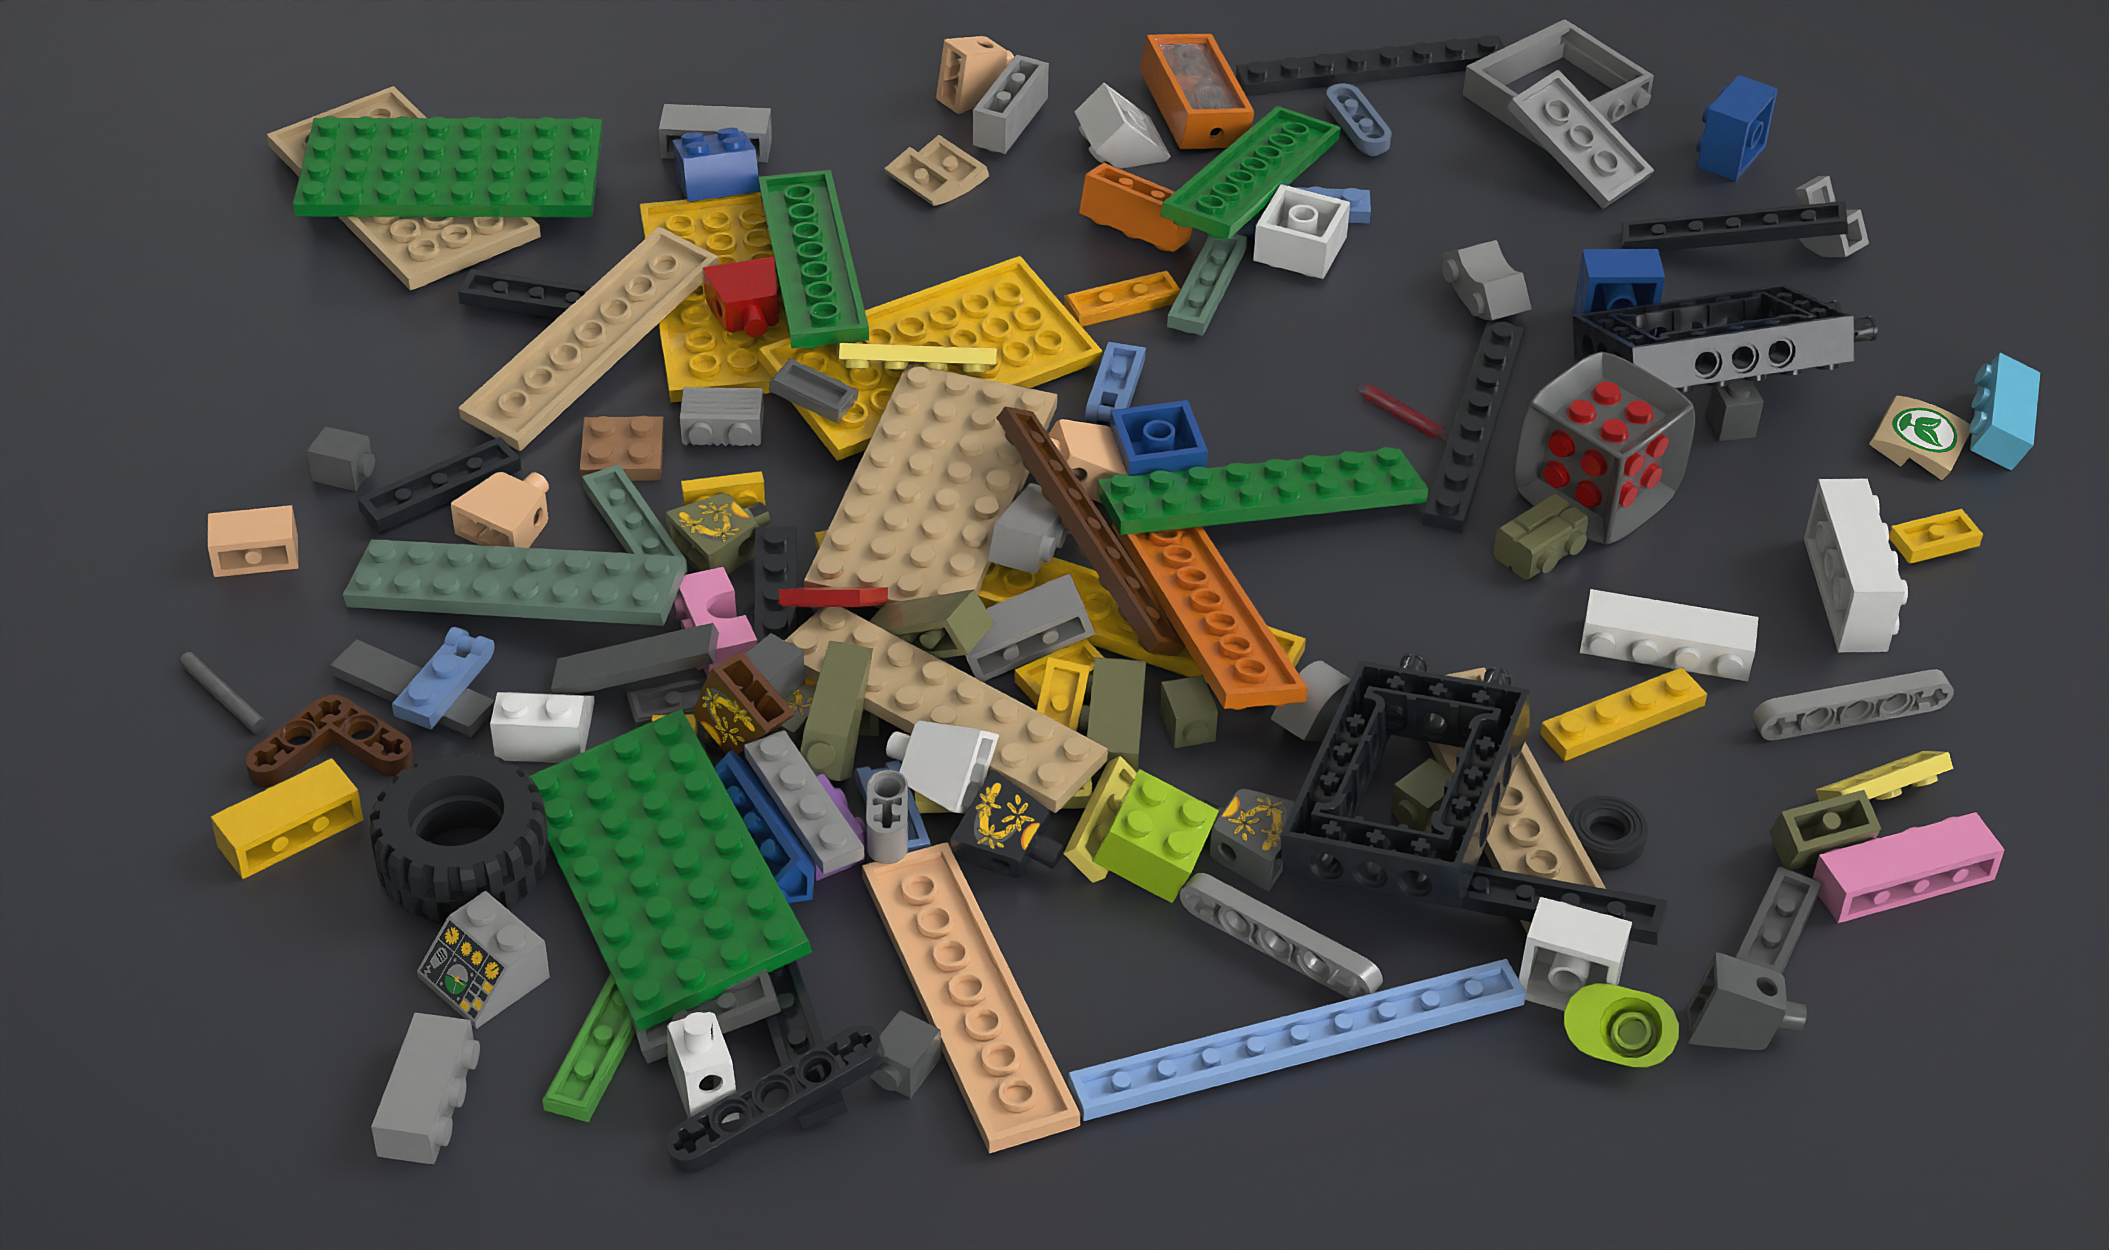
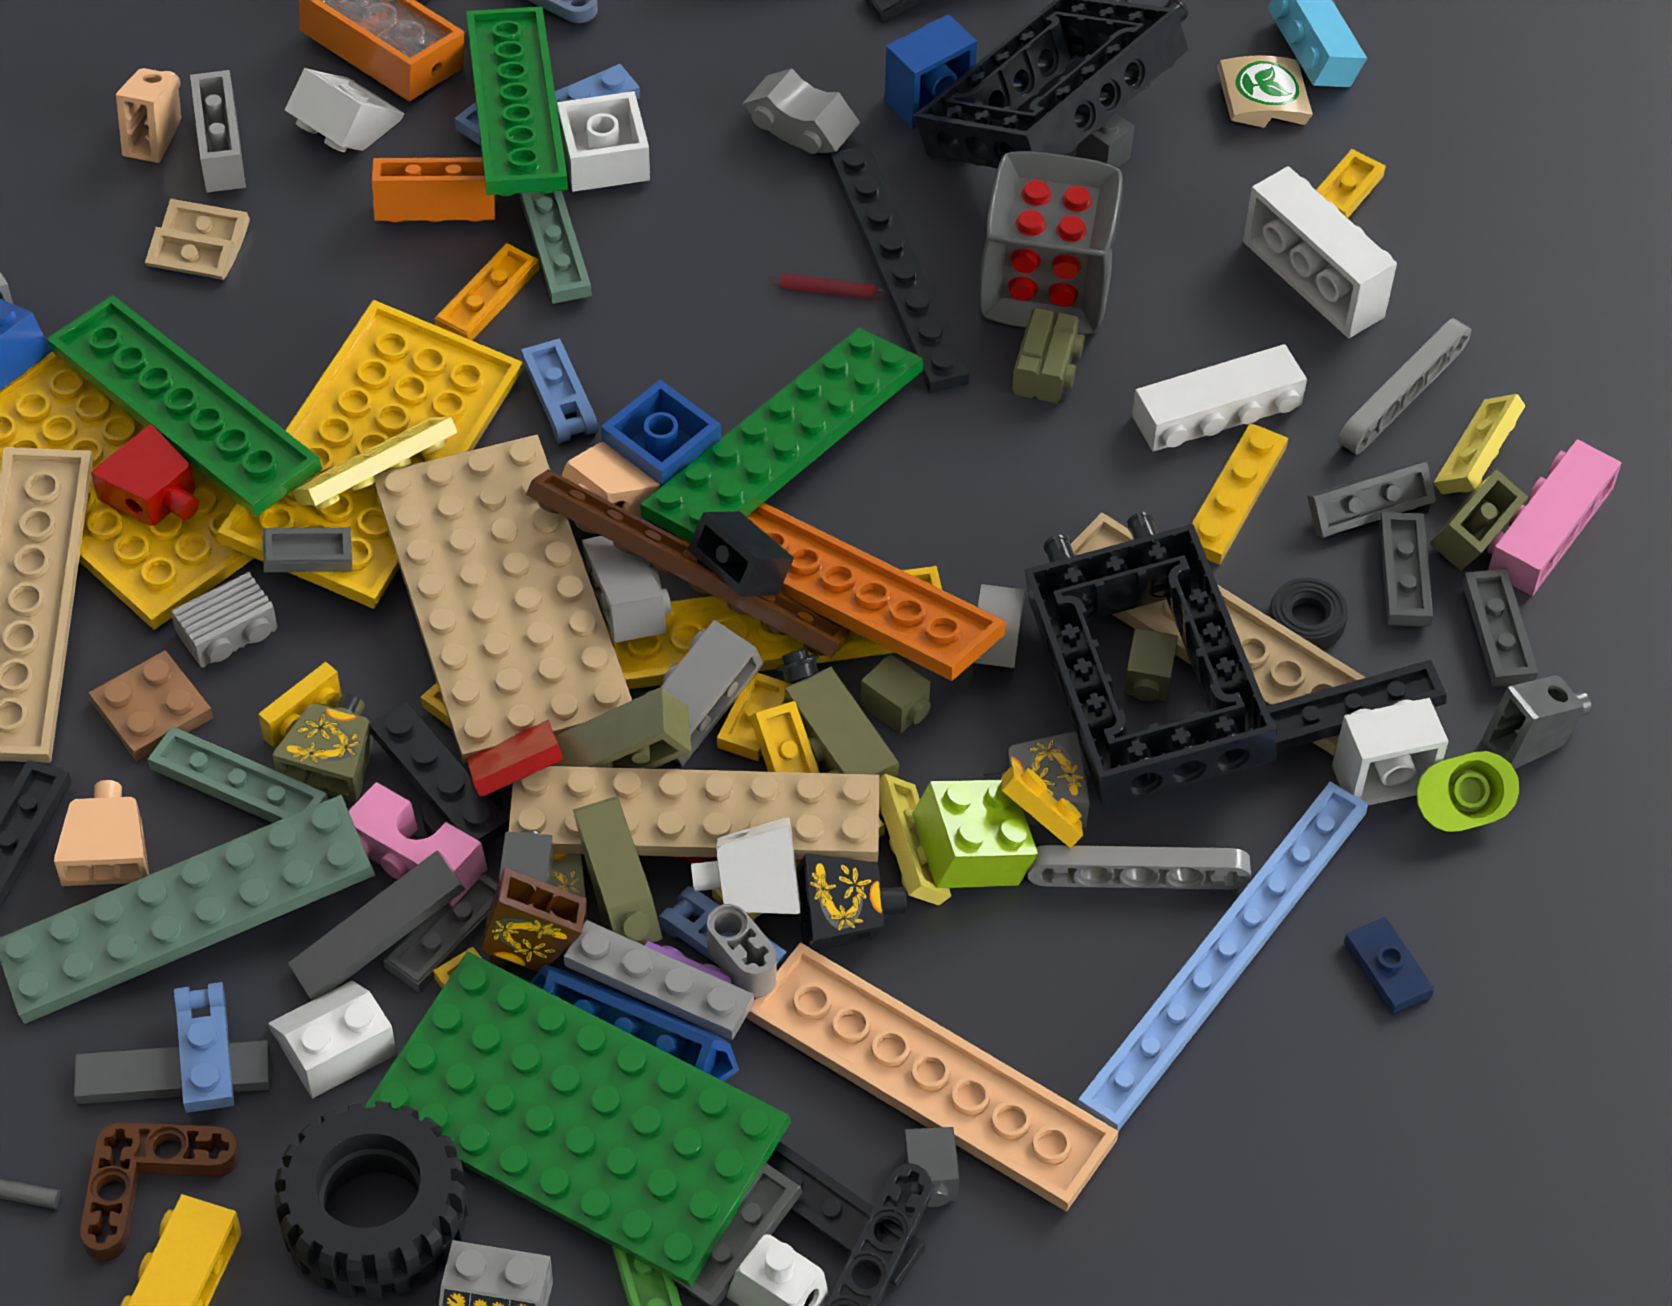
camera: 35 degrees left, 10 degrees up
(1121, 647) = (798, 665): none -> black plate
(1132, 538) = (740, 553): none -> black brick
(1218, 826) = (1029, 793): none -> yellow plate
(1439, 1127) = (1389, 965): none -> dark blue plate
(1727, 840) = (1405, 569): none -> dark grey plate
(1743, 772) = (1367, 497): none -> dark grey plate

